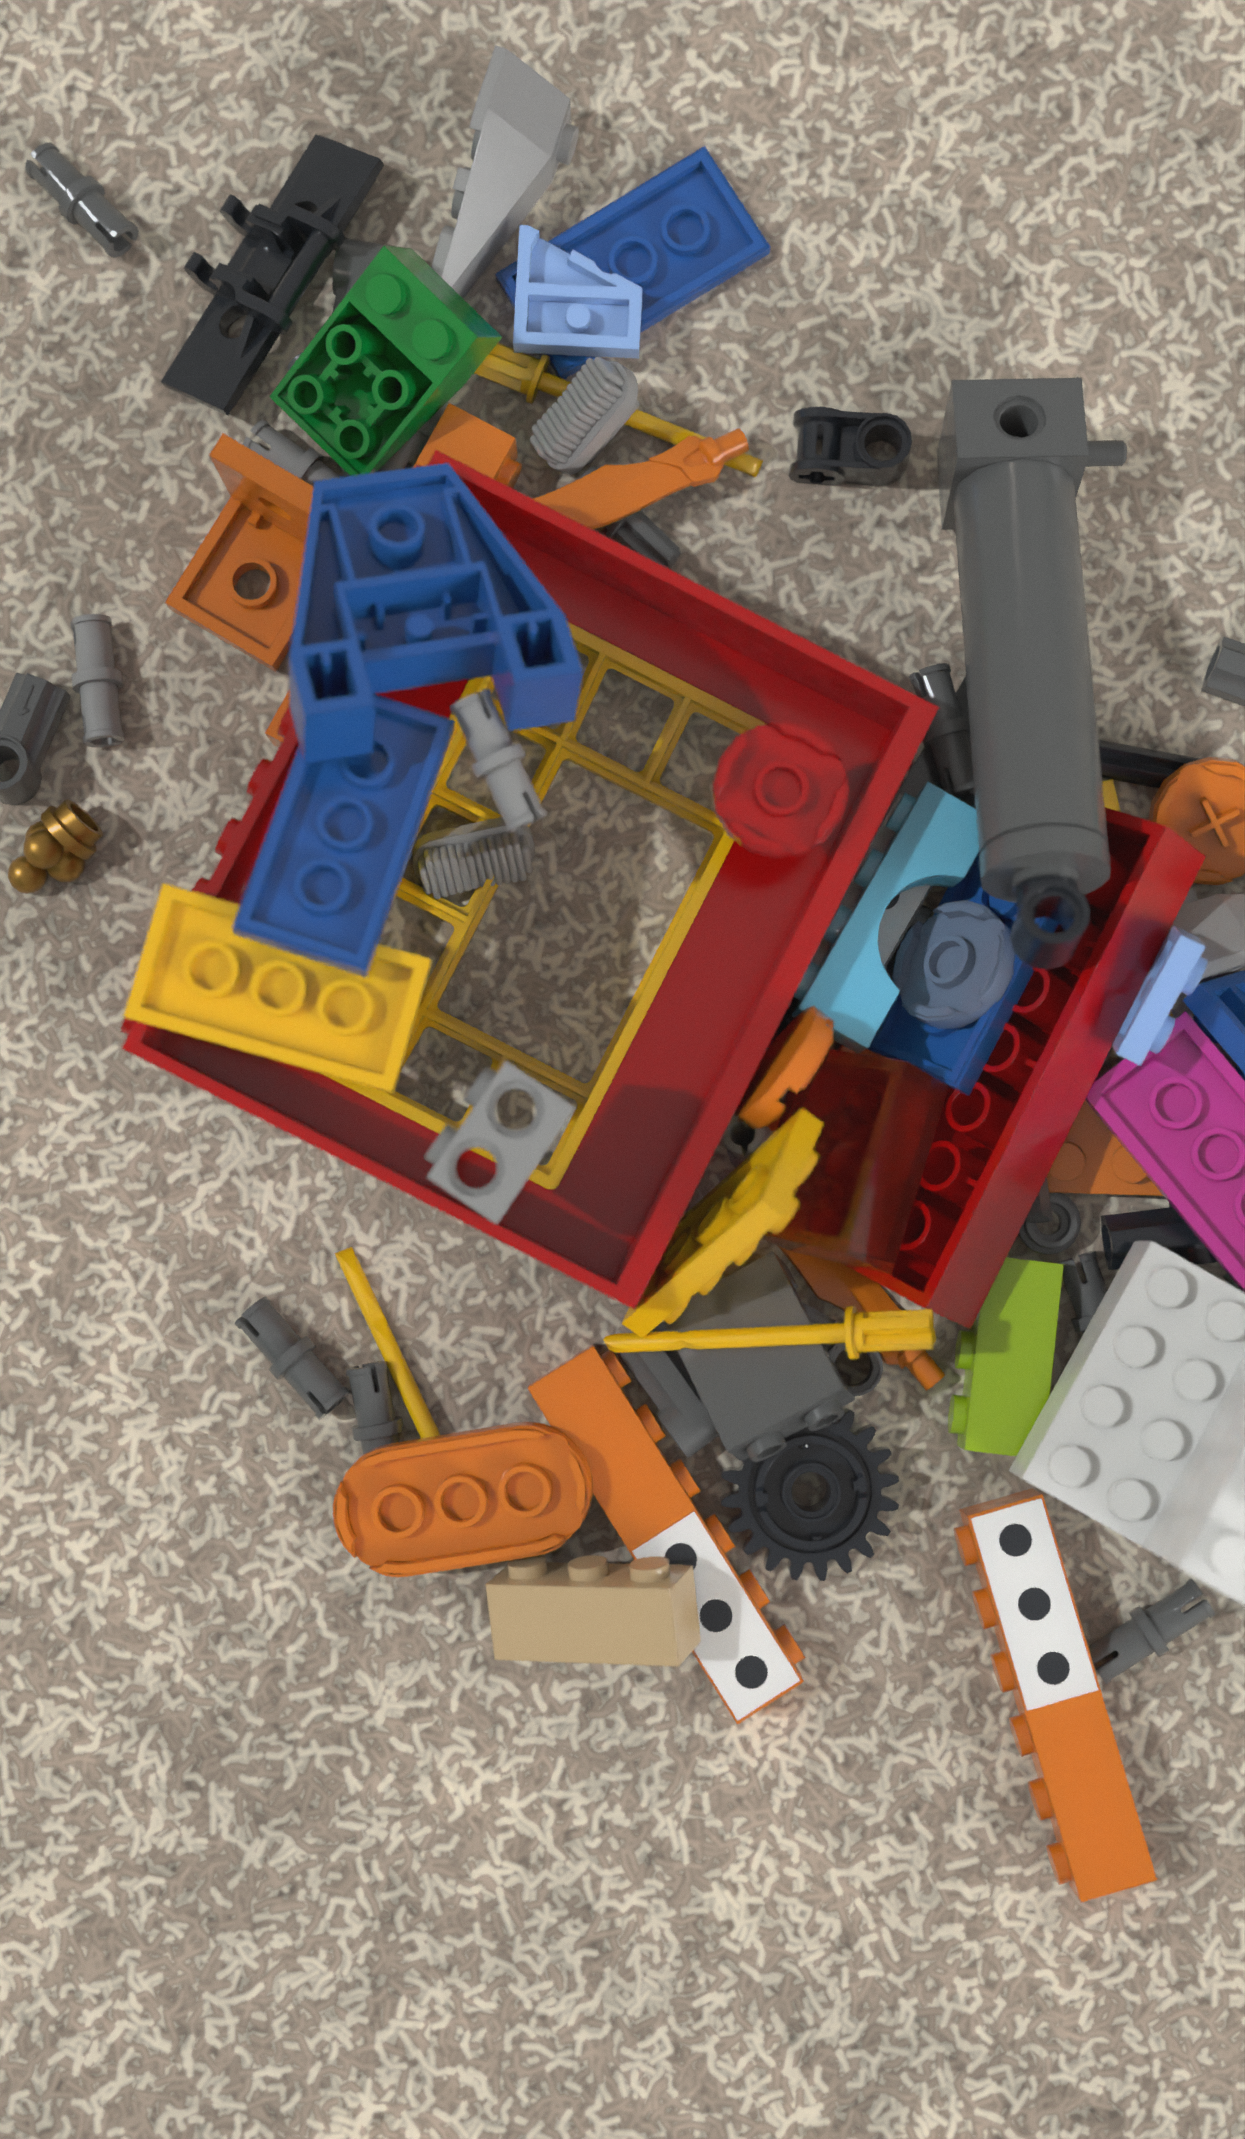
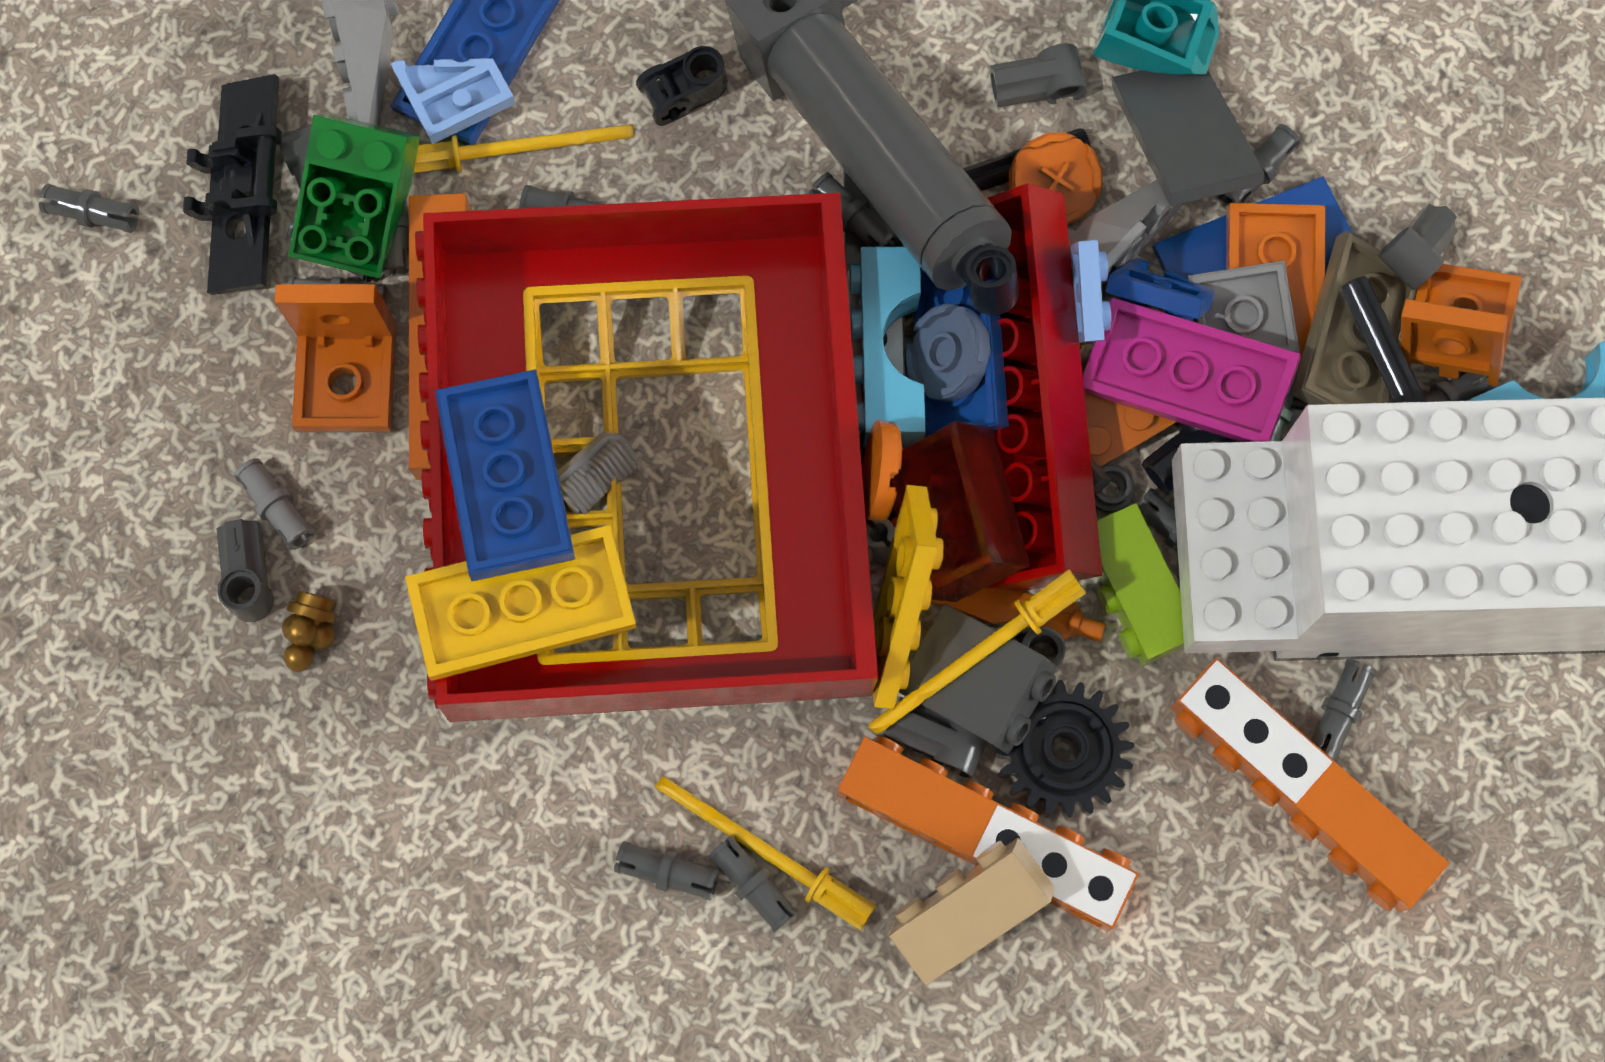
camera: 30 degrees left, 10 degrees down
(413, 592) = (466, 302): blue wedge -> none
(463, 1499) = (838, 890): orange tile -> none
(498, 760) = (579, 378): light grey pin -> none
(514, 1150) = (734, 616): light grey brick -> none
(586, 415) = (502, 156): light grey piece -> none
(625, 489) = (561, 181): orange sword -> none
(780, 789) = (770, 297): red tile -> none

